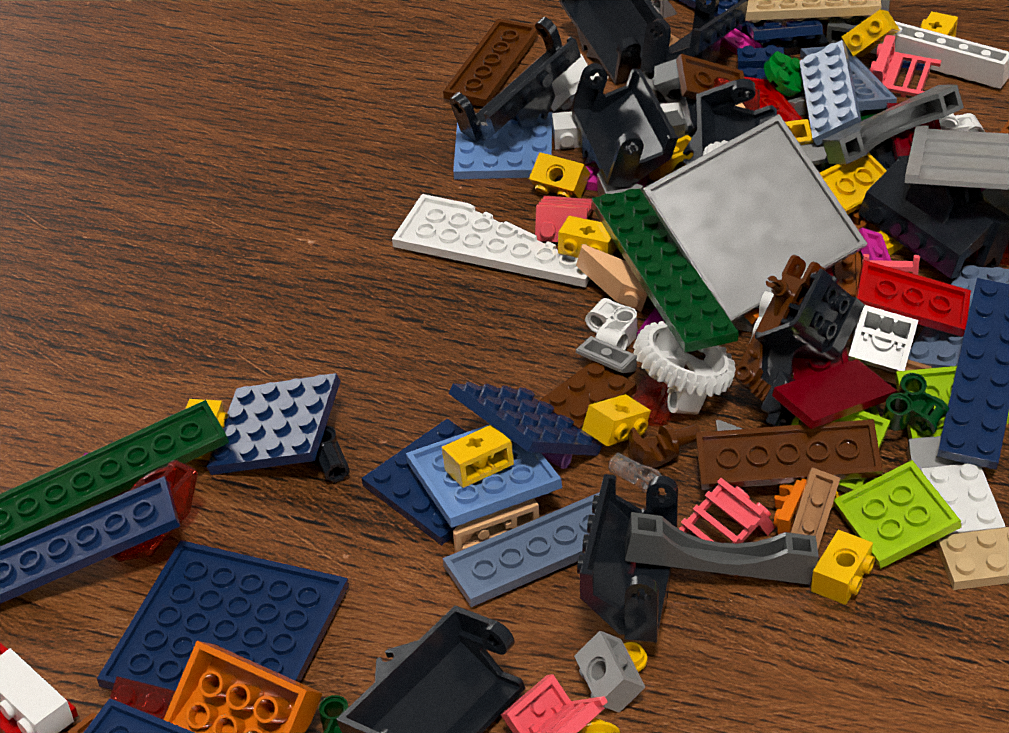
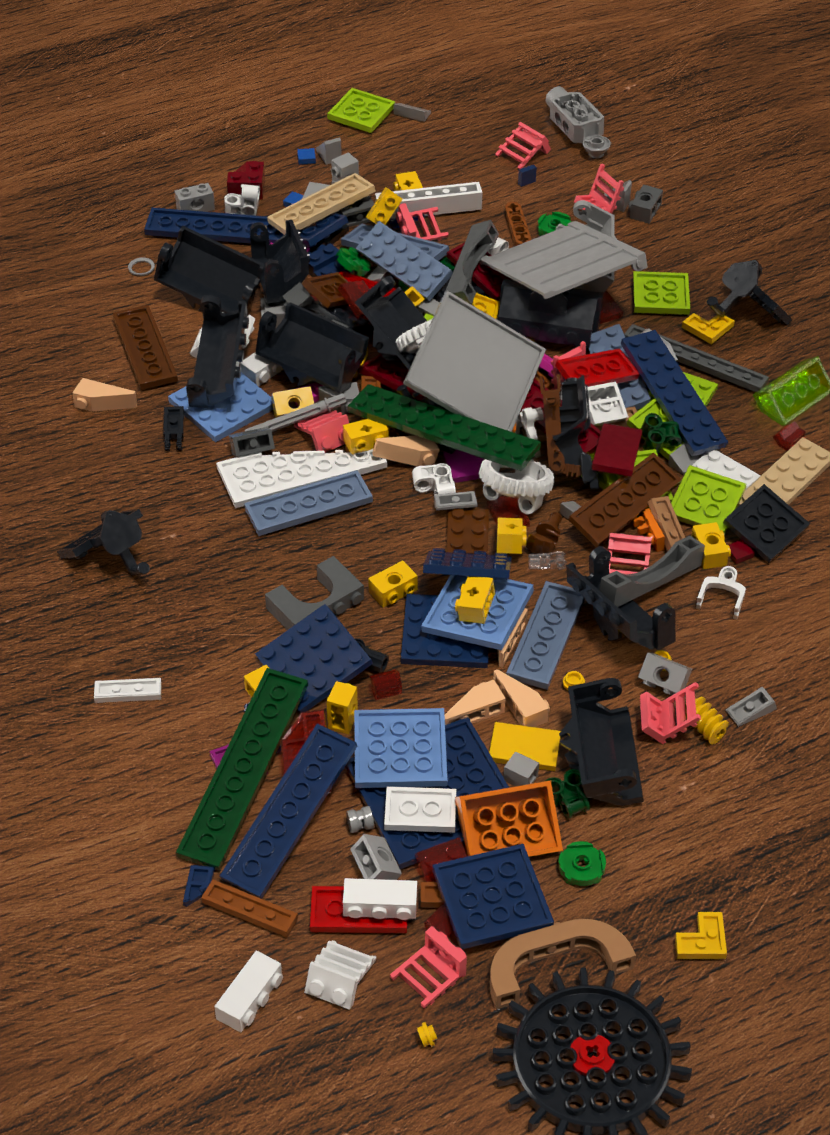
camera: 45 degrees left, 5 degrees up
(64, 669) = (375, 858): none -> light grey brick
(95, 354) = (127, 690): none -> white tile
(120, 607) = (360, 819): none -> light grey wheel
(170, 630) = (420, 809): none -> white plate
(232, 200) = (116, 534): none -> black plate
(235, 485) = (341, 707): none -> yellow brick
(236, 562) = (400, 748): none -> medium blue plate
(313, 493) = (386, 684): none -> clear red piece
(331, 671) = (520, 770): none -> light grey panel
(362, 640) = (531, 742): none -> yellow tile
(372, 572) = (478, 704): none -> light nougat slope
(383, 382) = (336, 578): none -> dark grey arch
(397, 86) = (101, 396): none -> light nougat slope
(421, 601) = (522, 701): none -> light nougat slope
(427, 145) = (173, 426): none -> black hinge
(434, 403) = (393, 584): none -> yellow brick
(464, 277) = (308, 502): none -> sand blue plate
(475, 191) = (251, 441): none -> dark grey brick
(508, 614) = (572, 678): none -> yellow plate
(576, 191) = (303, 413): none -> light grey axle
(813, 617) = (724, 583): none -> white piece
(877, 597) = (740, 551): none -> dark red tile
(940, 582) = (766, 523): none -> black plate

